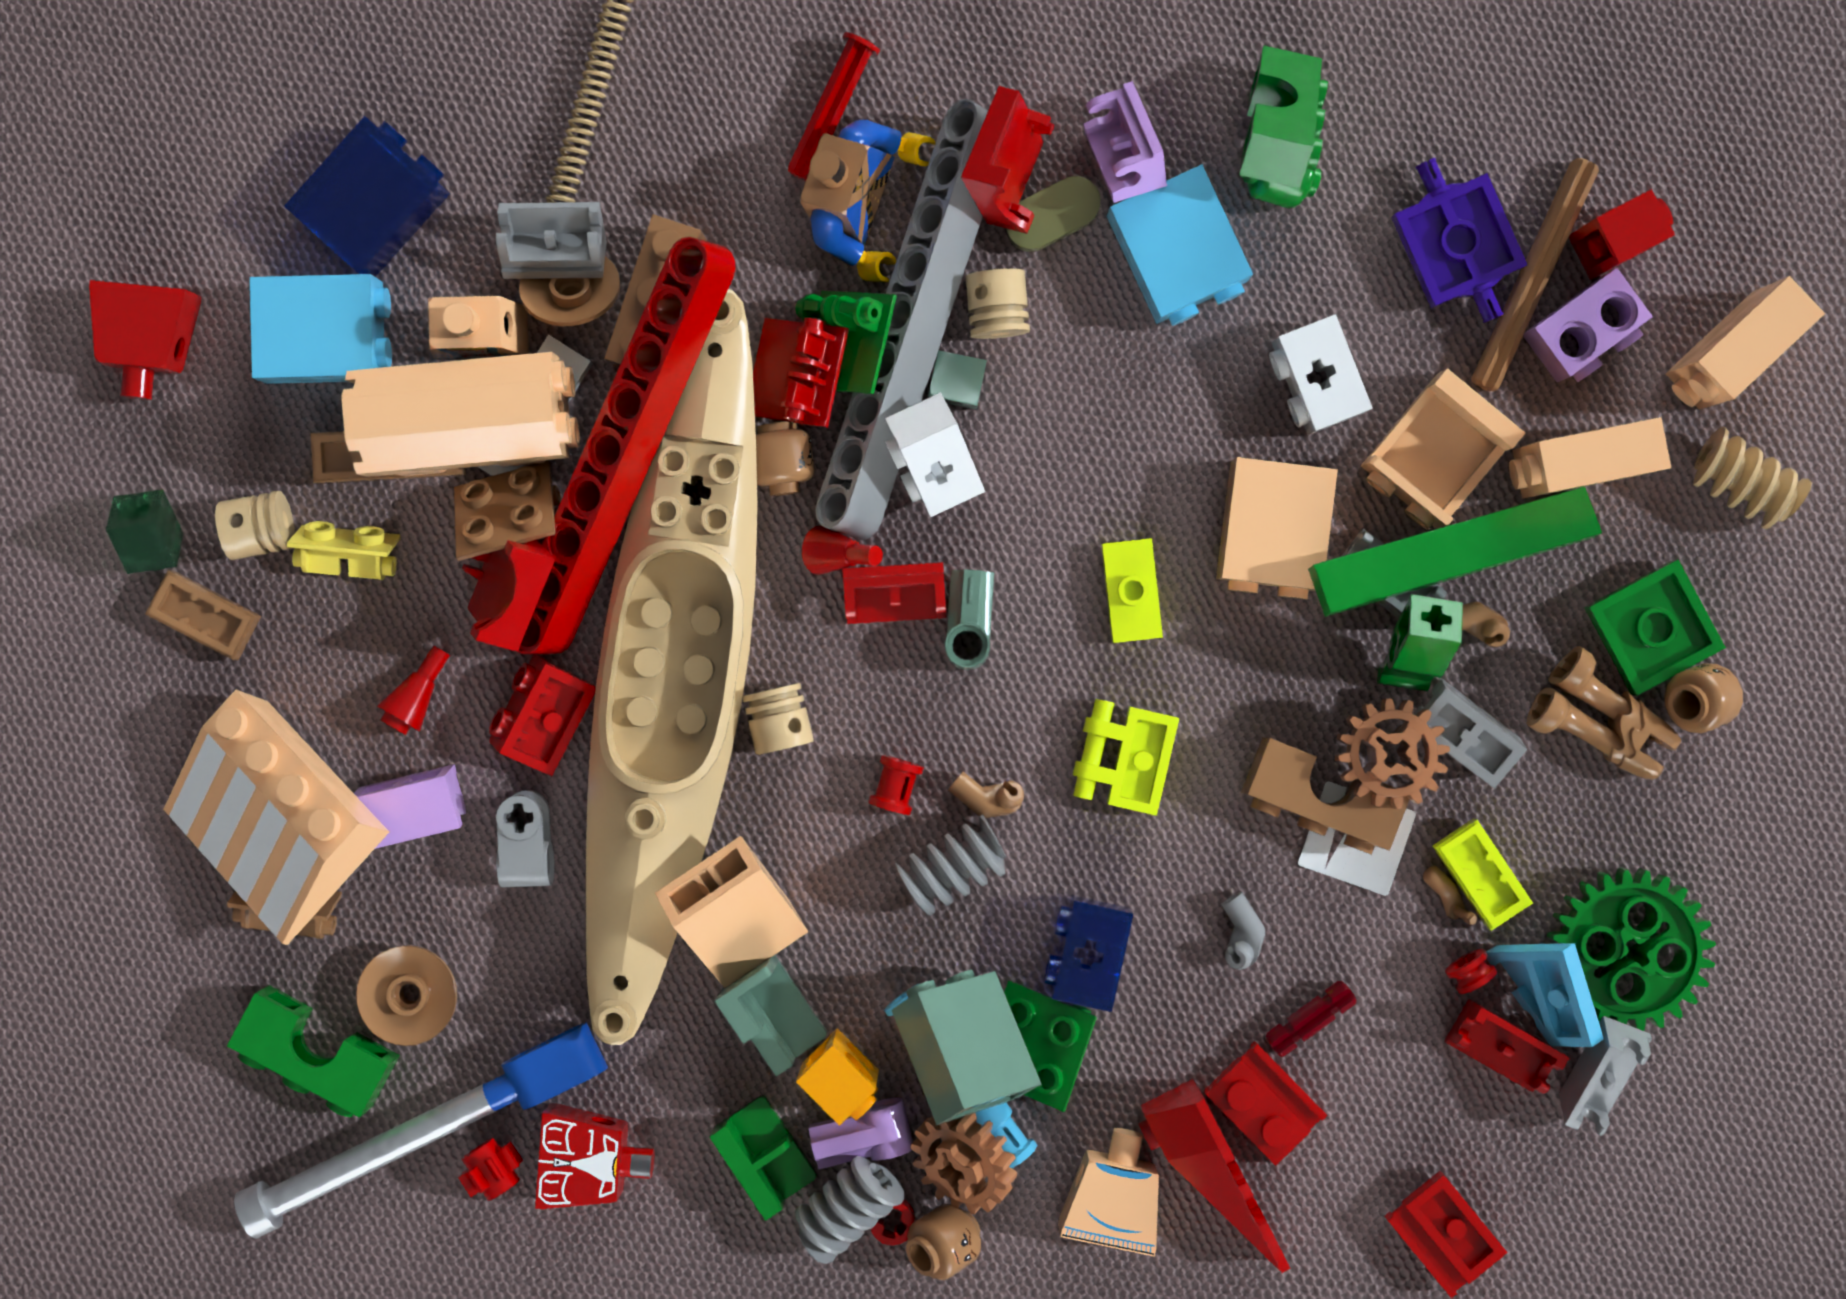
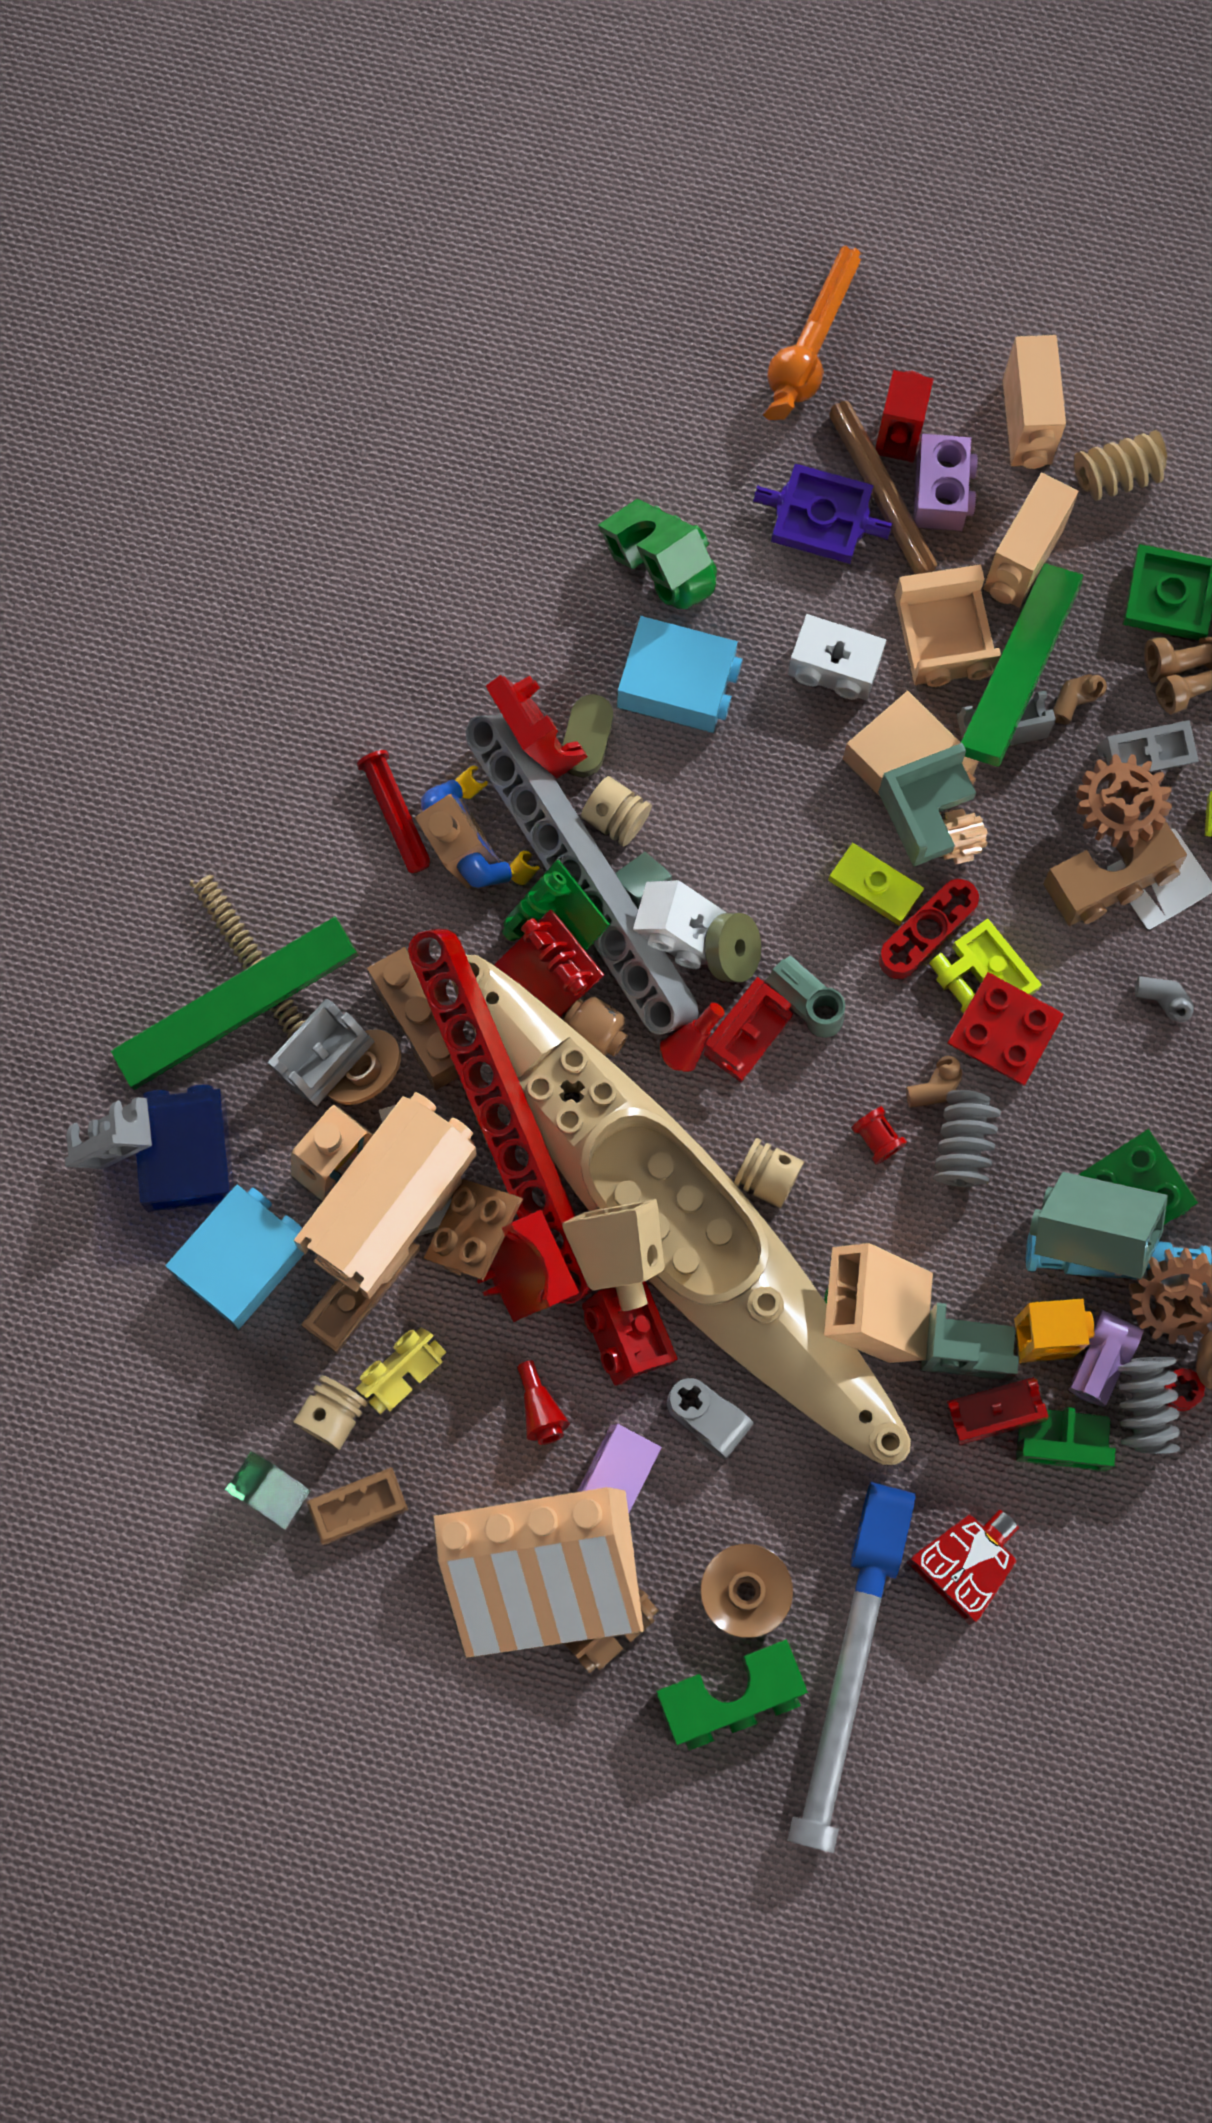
camera: 55 degrees left, 15 degrees down
(141, 331) = (130, 1377): red torso -> none
(324, 133) = (111, 1137): none -> light grey hinge
(490, 1169) = (920, 1636): red gear -> none
(531, 126) = (234, 1003): none -> green tile
(587, 650) = (618, 1249): none -> tan torso
(735, 1081) = (997, 1411): none -> red hinge
(955, 516) = (733, 947): none -> olive piece
(1085, 817) = (1005, 1028): none -> red hinge
(1097, 981) = (1096, 1080): clear blue brick -> none
(1125, 144) = (586, 650): lavender hinge -> none
(1165, 687) = (941, 899): none -> red beam
(1231, 566) = (917, 795): none -> sand green panel
(1237, 629) = (967, 834): none -> light nougat gear
(1422, 643) = (1066, 726): green piece -> none
(1586, 92) = (796, 370): none -> orange piece

